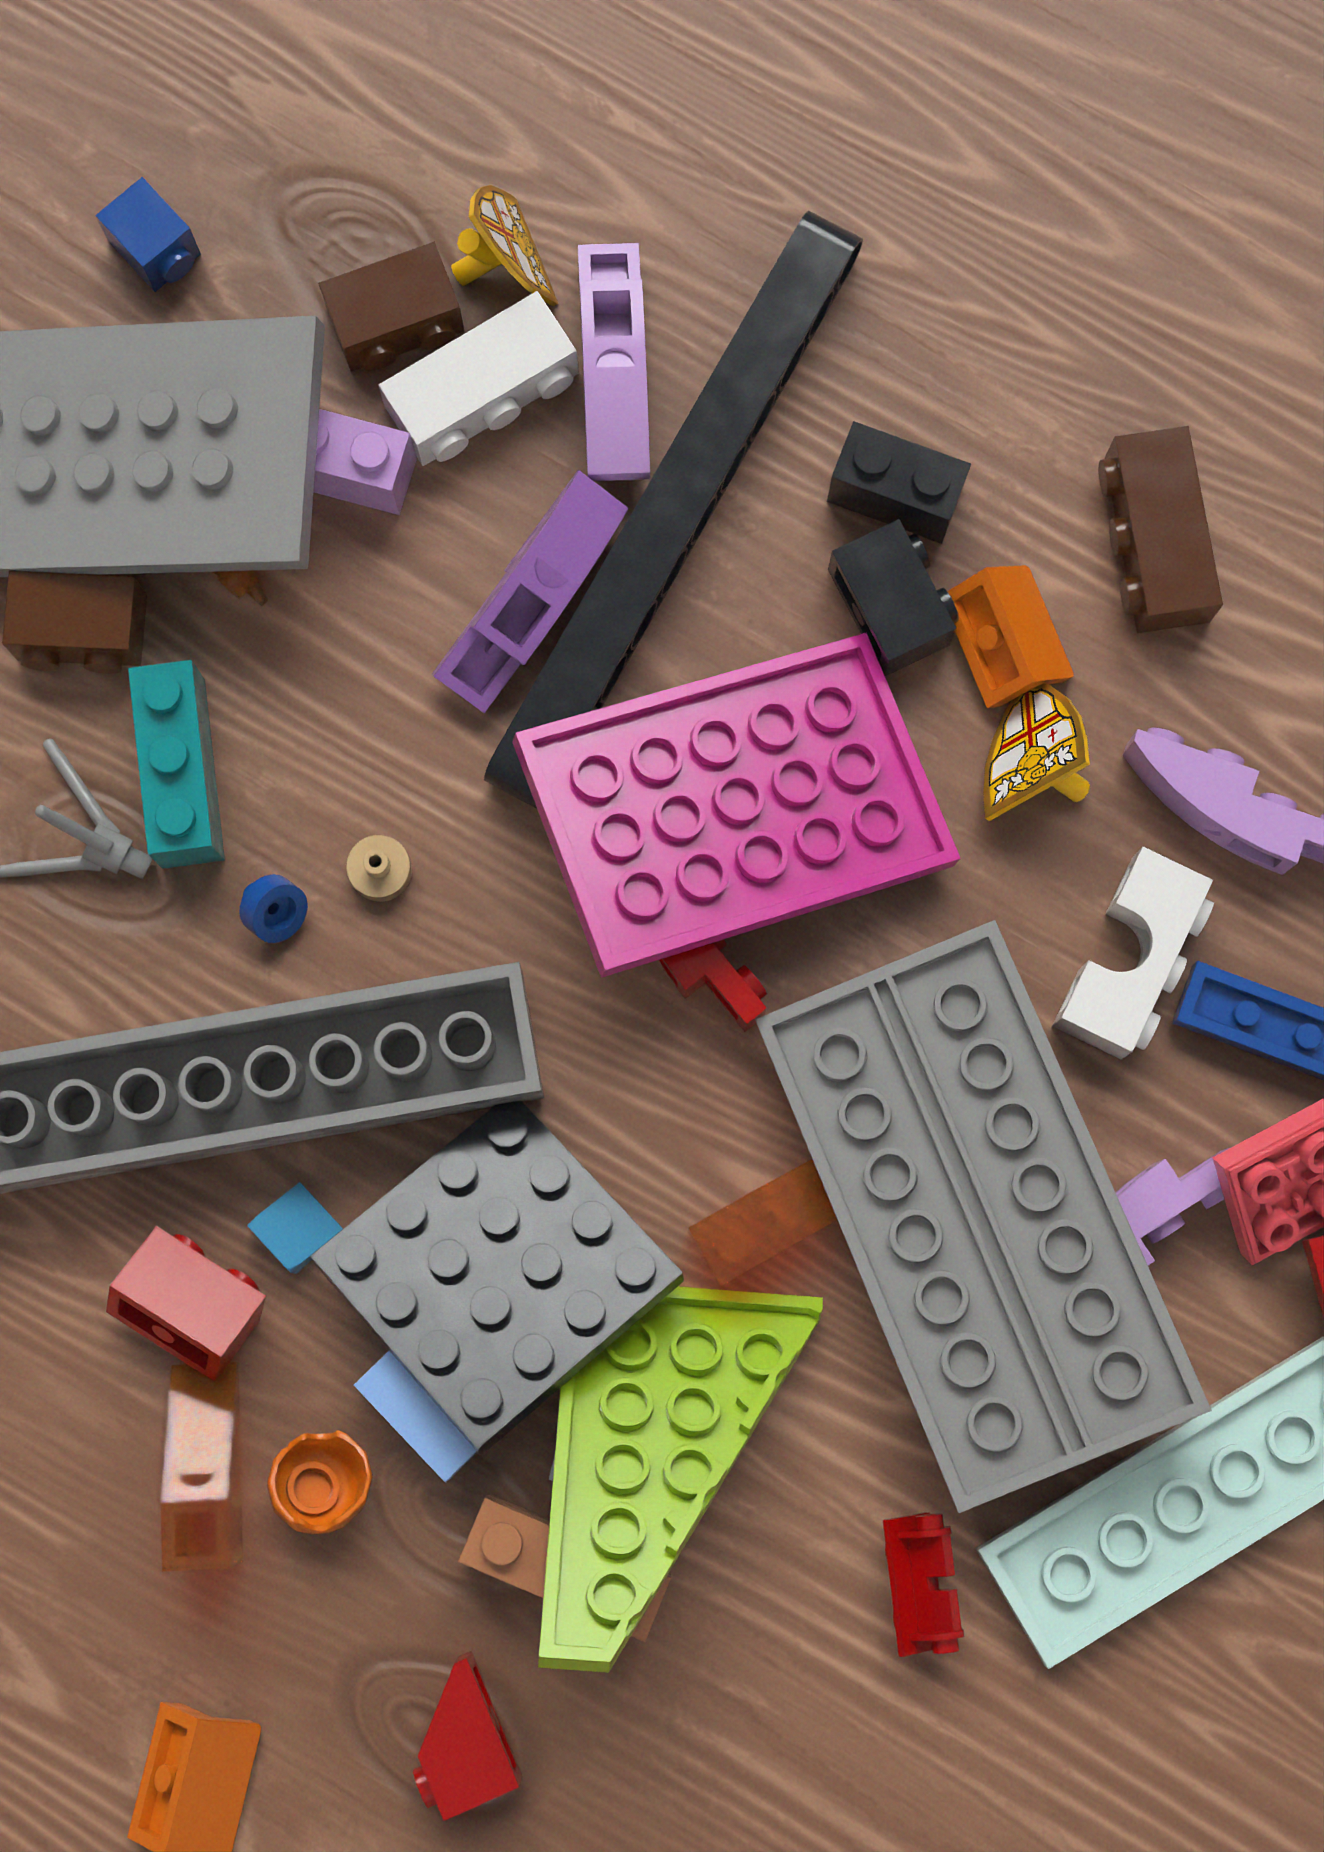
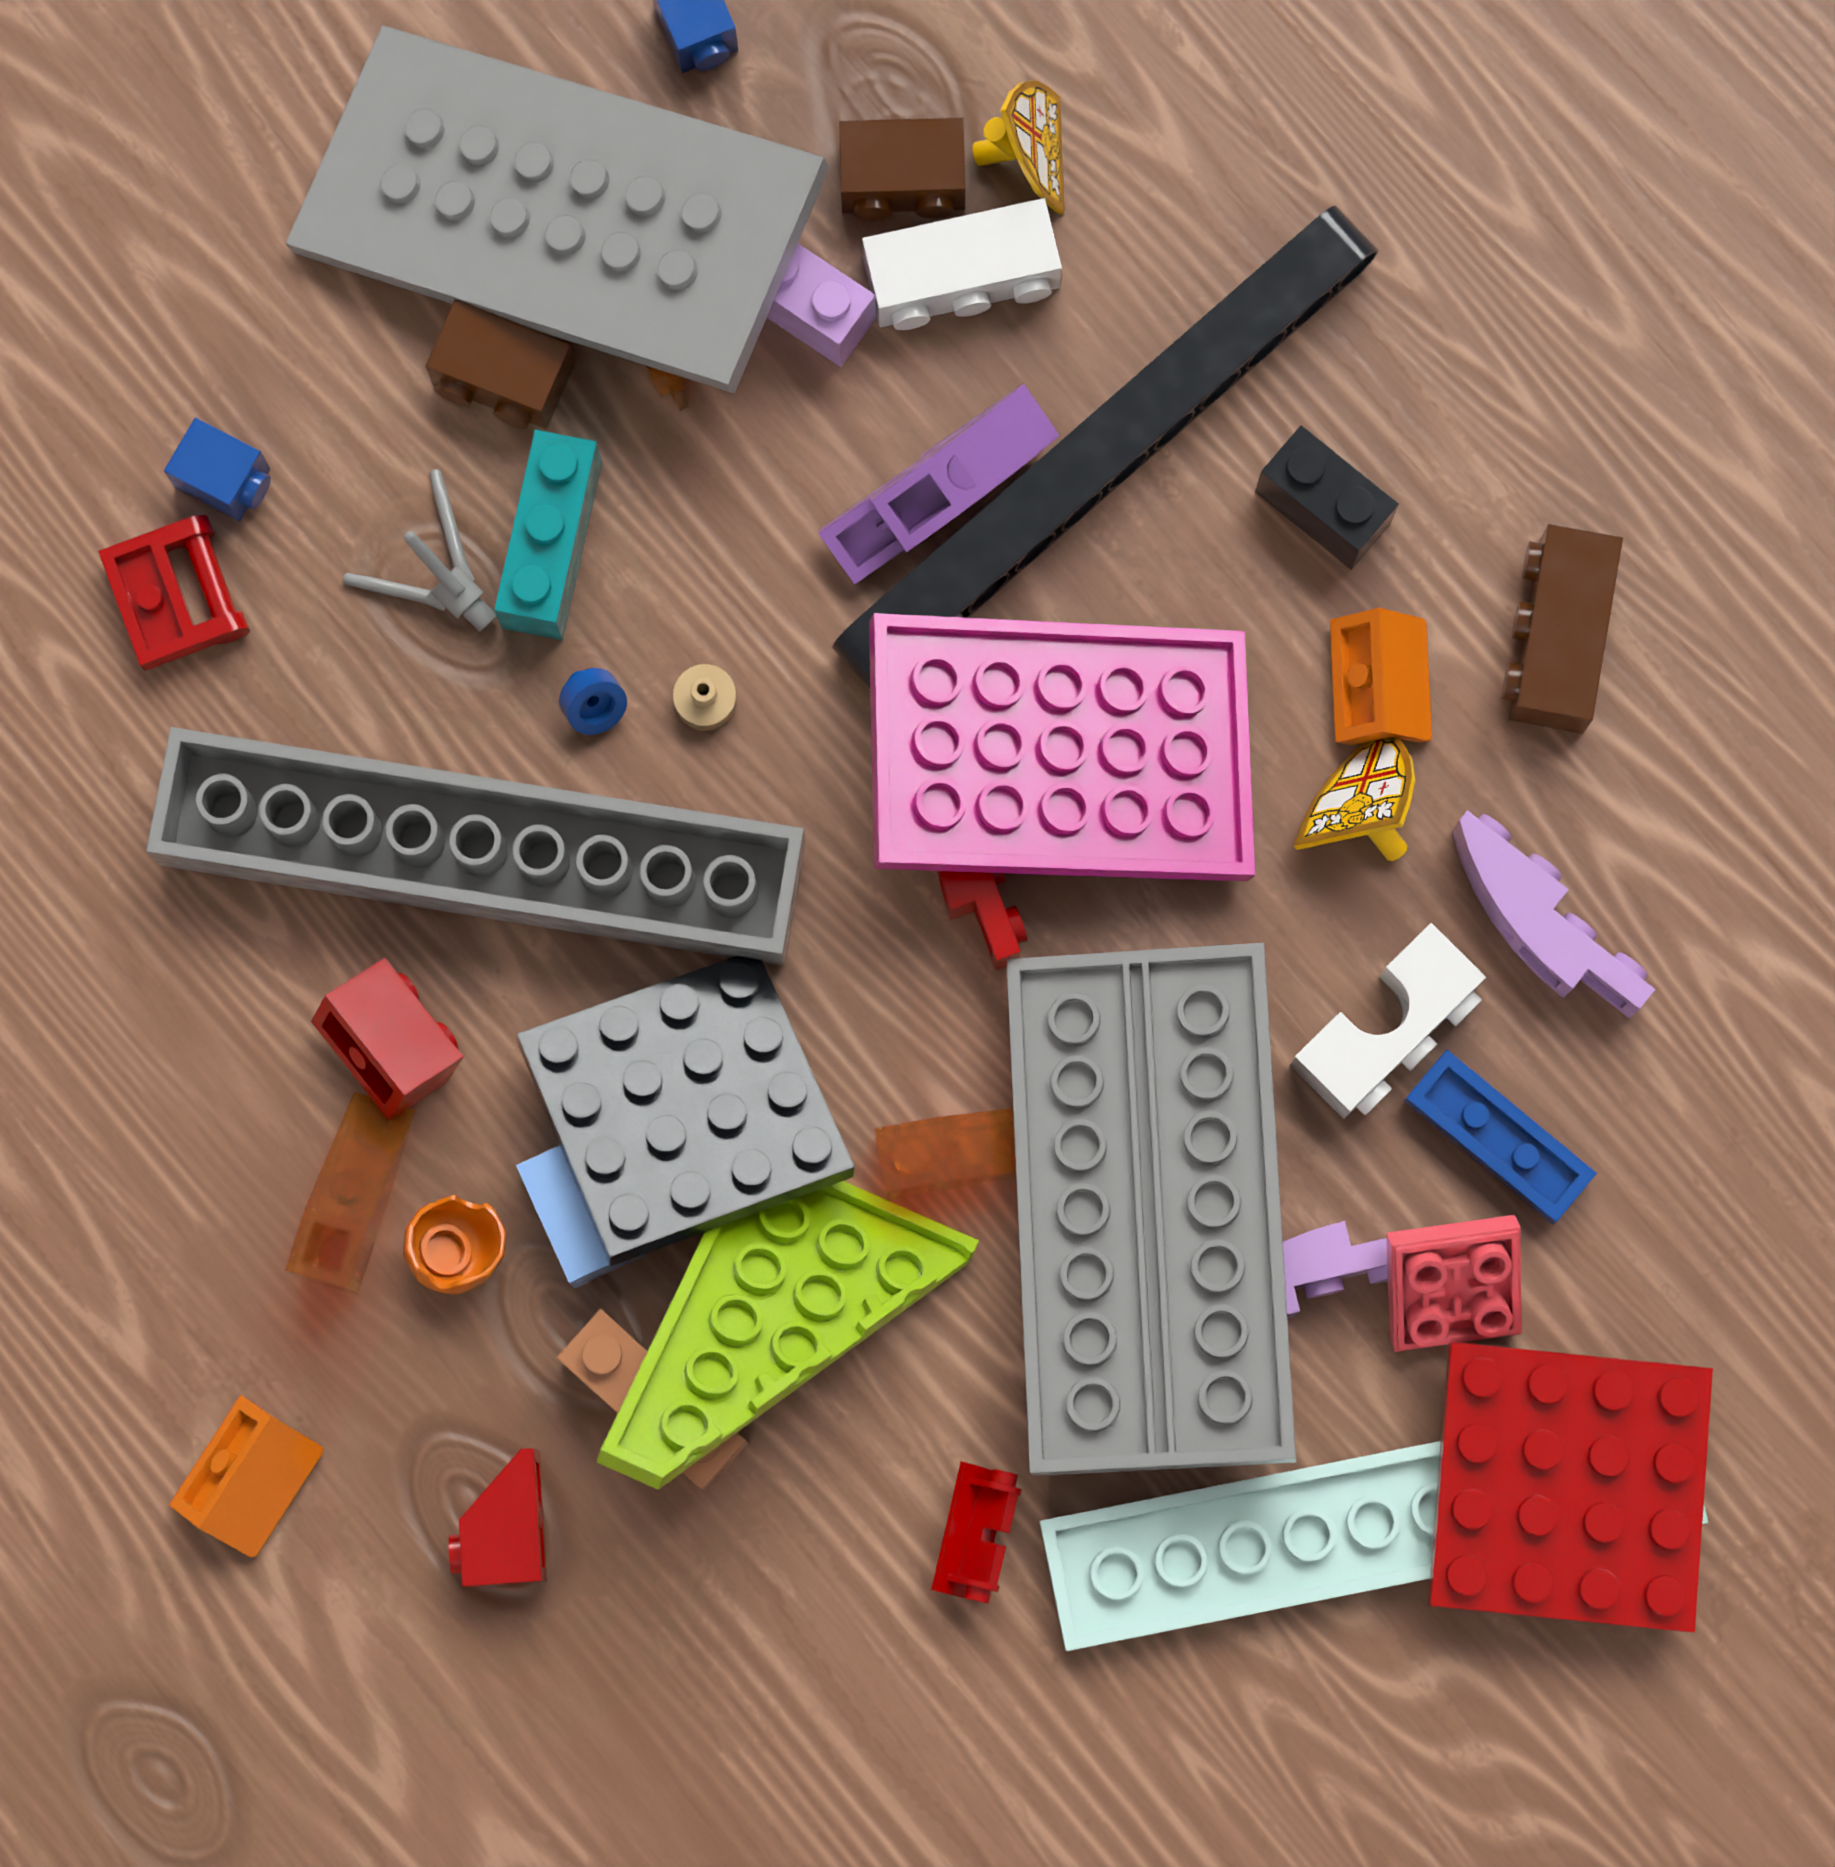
camera: 20 degrees right, 0 degrees up
(295, 1227) = (510, 1005): dark azure slope -> none
(614, 362) = (1094, 289): lavender slope -> none
(893, 596) = (1282, 605): black brick -> none

